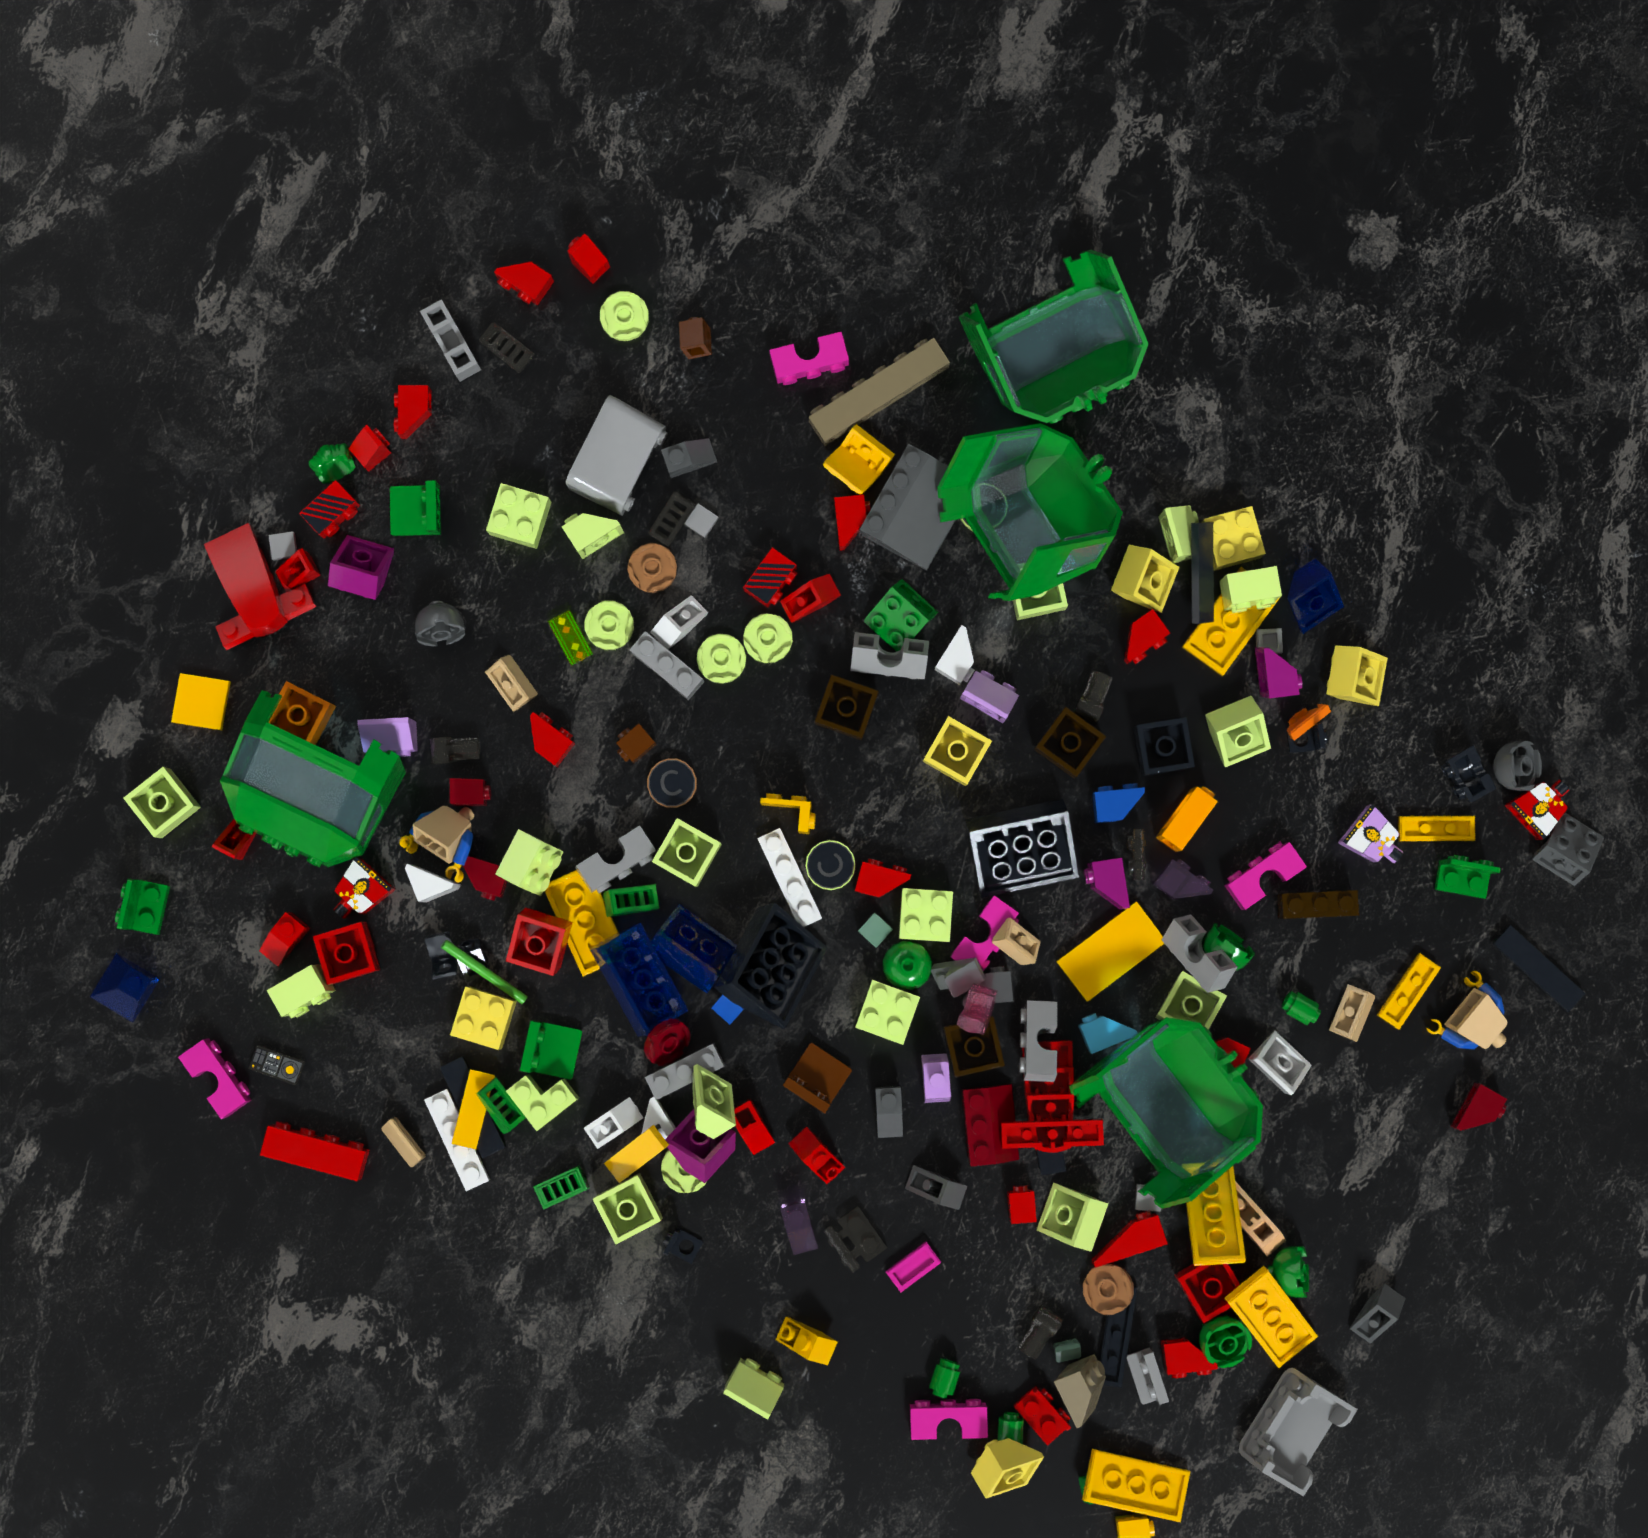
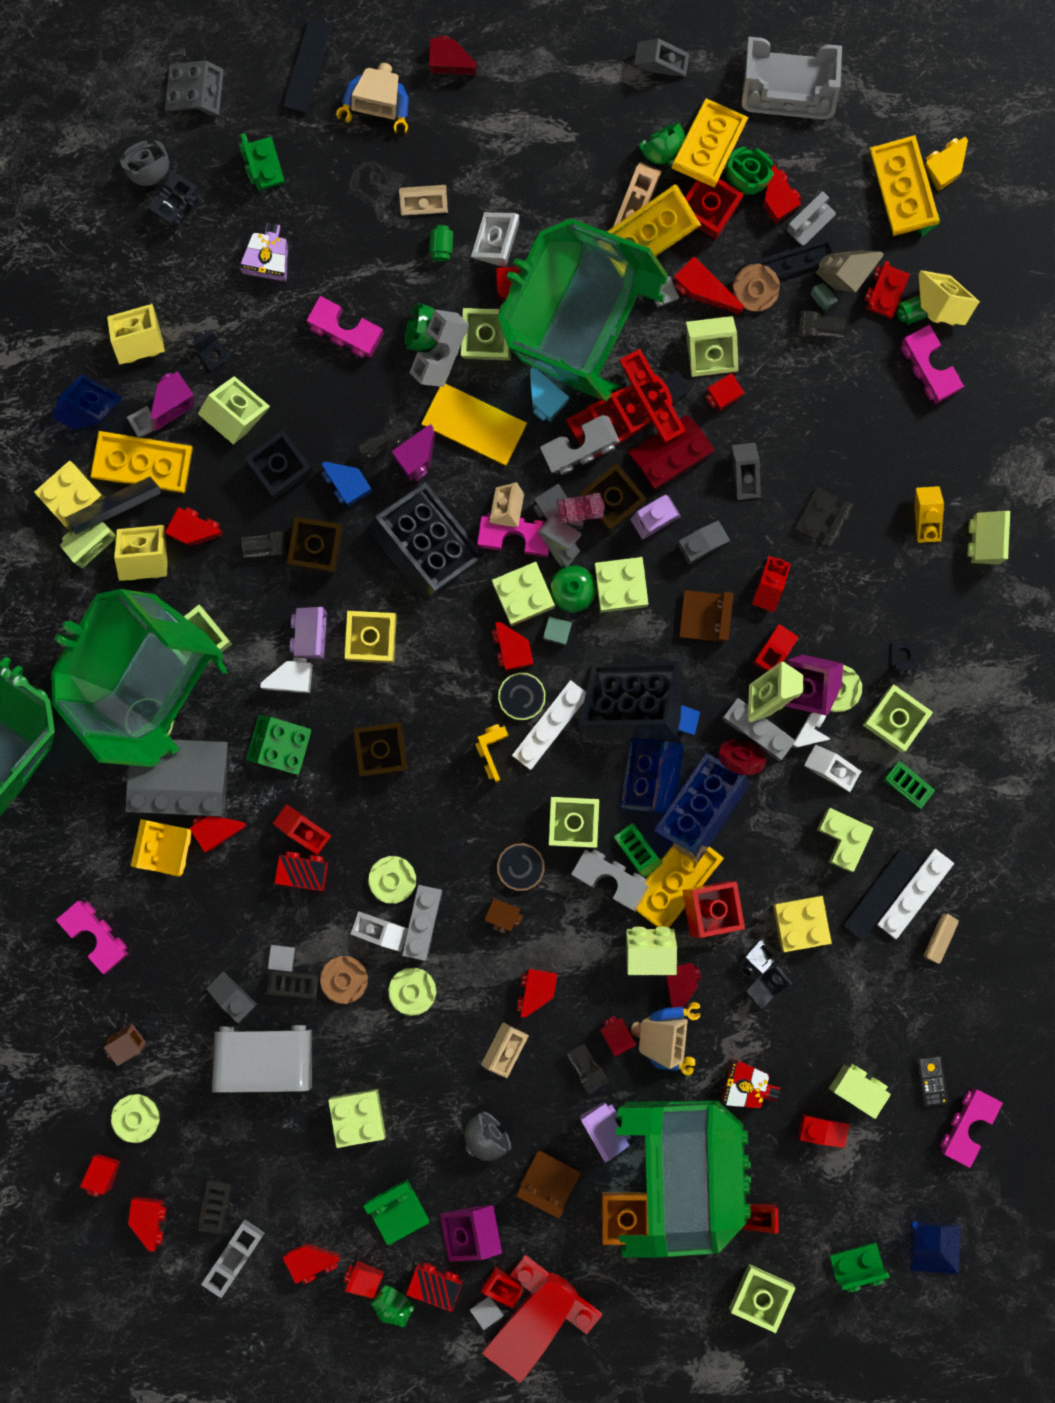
camera: 120 degrees left, 0 degrees up
(201, 701) = (658, 1312): yellow tile -> none
(315, 1152) = (988, 1009): red brick -> none
(346, 953) = (808, 1069): red brick -> none
(368, 659) = (548, 1184): none -> reddish brown bracket
(429, 885) = (713, 1029): white slope -> none
(471, 1111) = (883, 892): yellow tile -> none
(484, 971) = (763, 943): bright green bar -> none
(504, 1125) = (882, 860): green slope -> none
(551, 1049) = (798, 852): green bracket -> none
(570, 637) = (440, 1019): clear neon green tile -> none
(590, 532) = (340, 1047): yellowish green slope -> none
(636, 1154) = (848, 734): yellow tile -> none
(767, 638) = (354, 848): yellowish green tile -> none
(799, 1227) = (837, 568): clear purple slope -> none
(871, 658) = (315, 717): light grey arch -> none
(879, 391) = (92, 861): dark tan brick -> none
(913, 1266) = (821, 457): dark pink tile -> none
(945, 1378) = (899, 384): green brick -> none
(1179, 883) = (387, 396): clear purple slope -> none
(1187, 818) = (330, 415): light orange window -> none
(1250, 588) = (107, 459): yellowish green brick -> none
(1306, 719) = (195, 358): orange tile -> none
(1318, 904) = (347, 271): dark brown brick -> none
(1408, 991) = (381, 162): yellow tile -> none
(1436, 828) = (232, 205): yellow tile -> none
(1539, 808) = (172, 128): torso -> none

